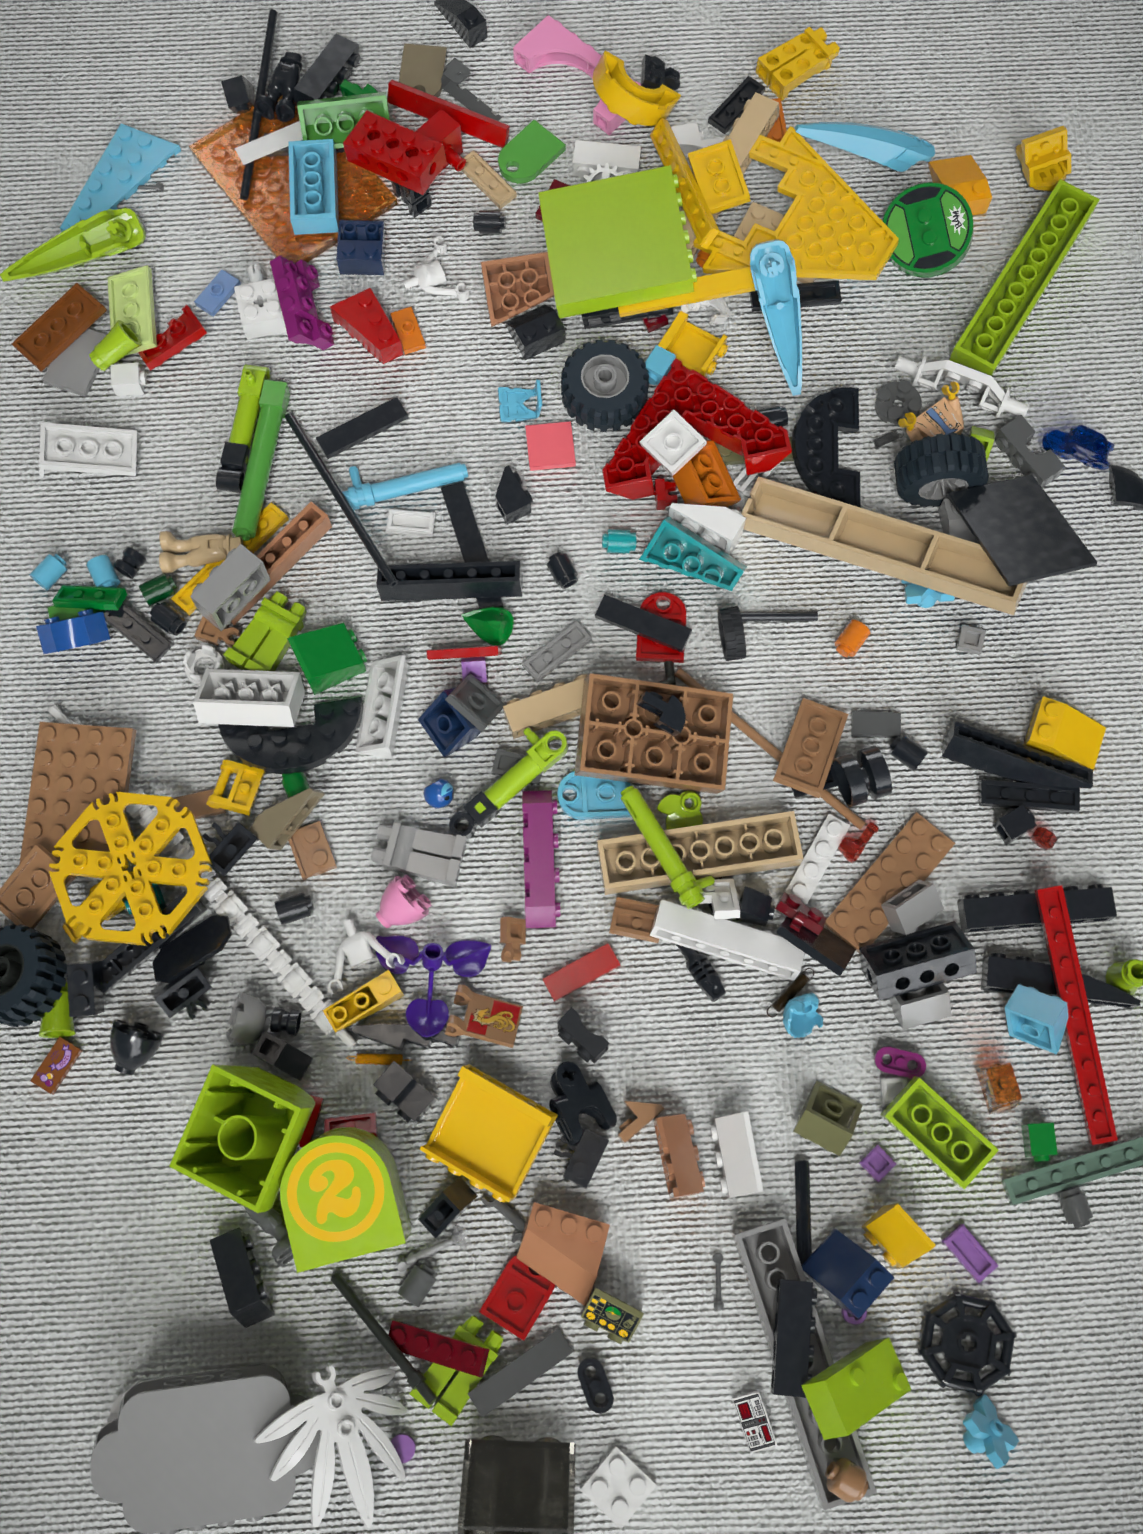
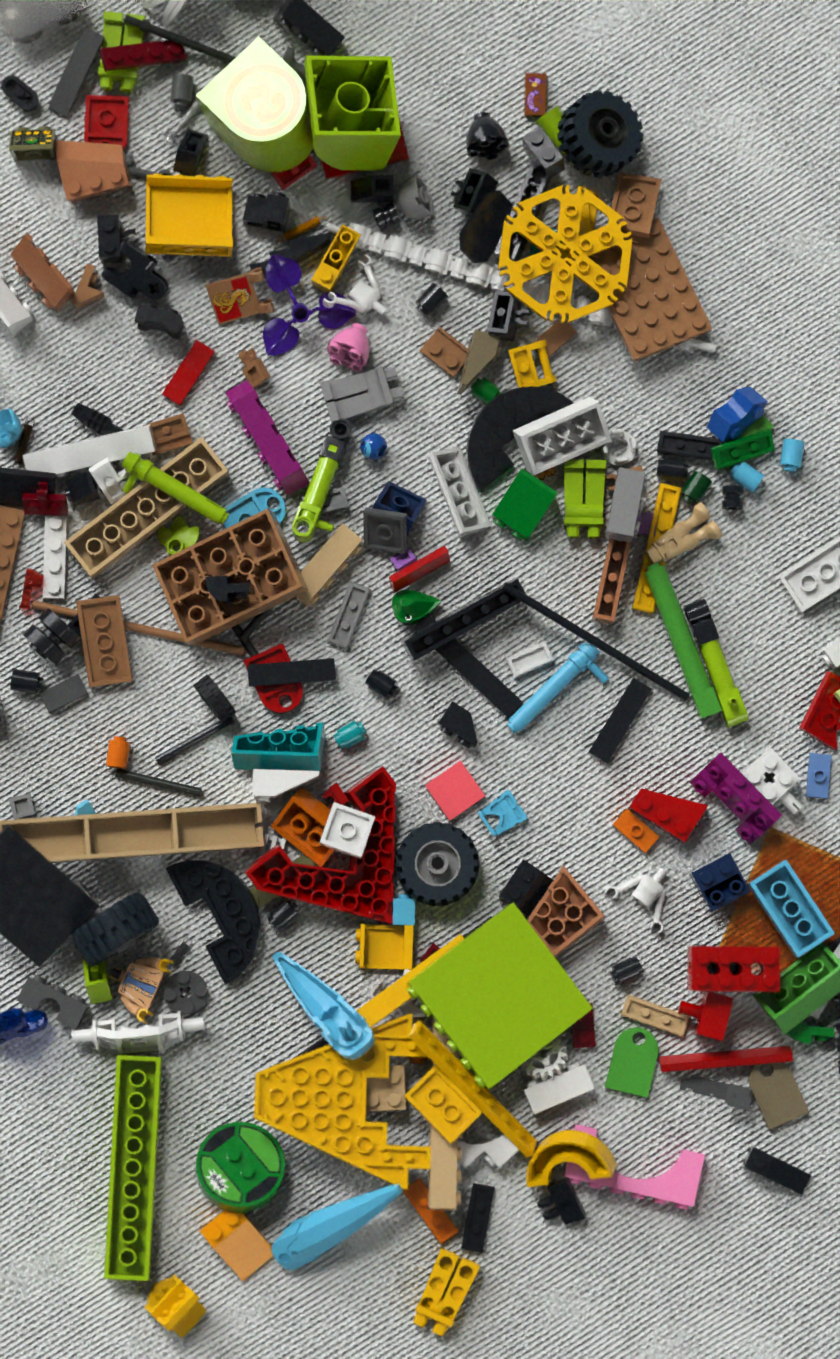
camera: 150 degrees right, 10 degrees up
(823, 593) = (158, 782): none -> pearl dark grey bar

